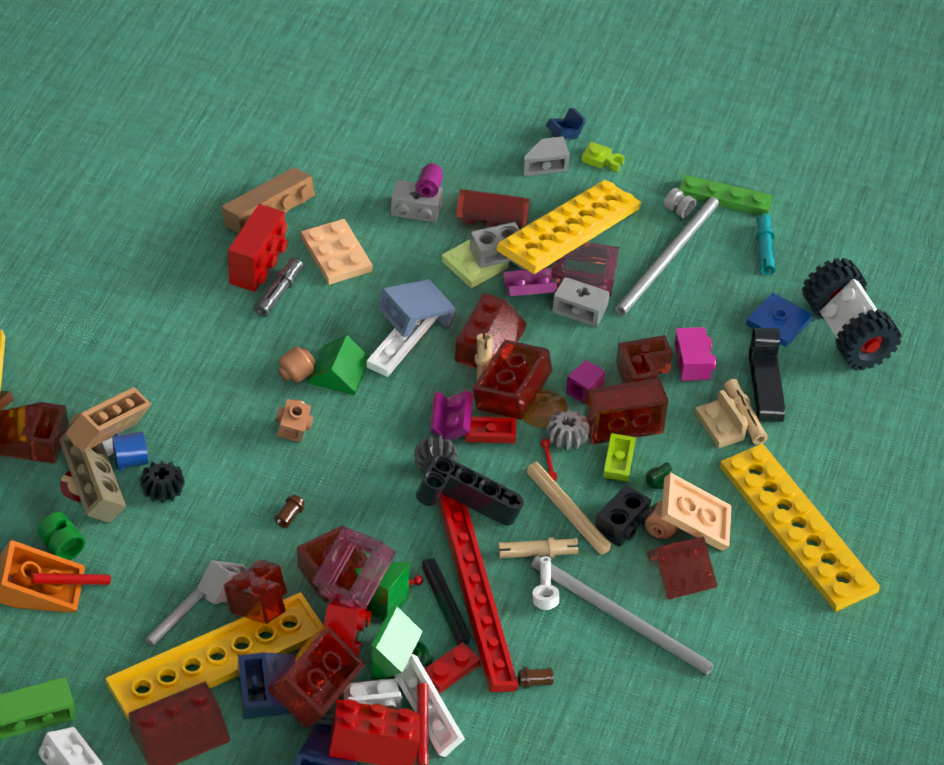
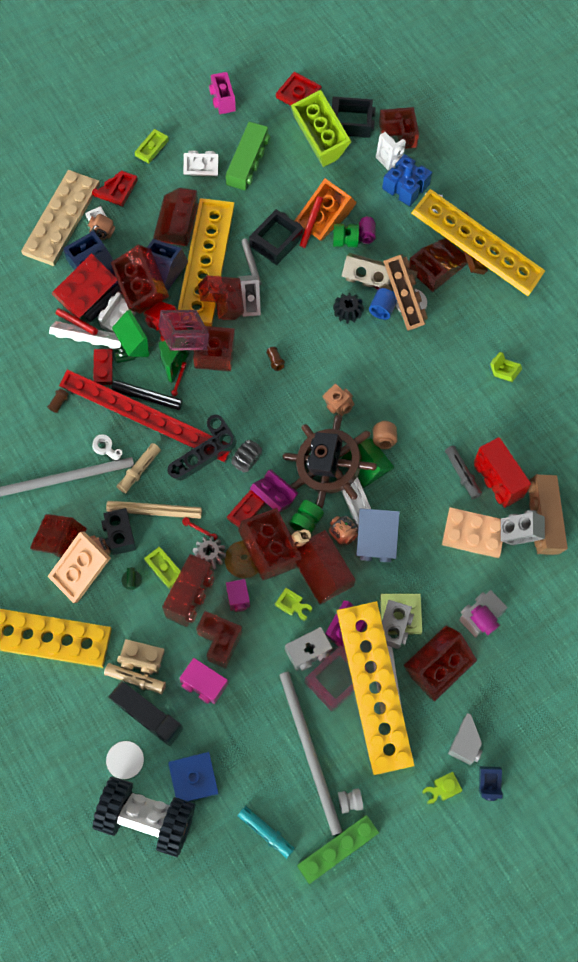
camera: 130 degrees right, 20 degrees up
(27, 525) = (367, 230): none -> magenta brick
(119, 624) = (266, 249): none -> black window
(120, 311) = (504, 368): none -> lime bracket
(310, 201) = (523, 528): none -> light grey brick
(374, 372) = (326, 459): none -> reddish brown brick
(435, 340) = (343, 530): none -> nougat head
(452, 373) = (307, 515): none -> green wheel
(551, 338) = (291, 603): none -> lime plate
(819, 379) = (124, 760): none -> white sticker

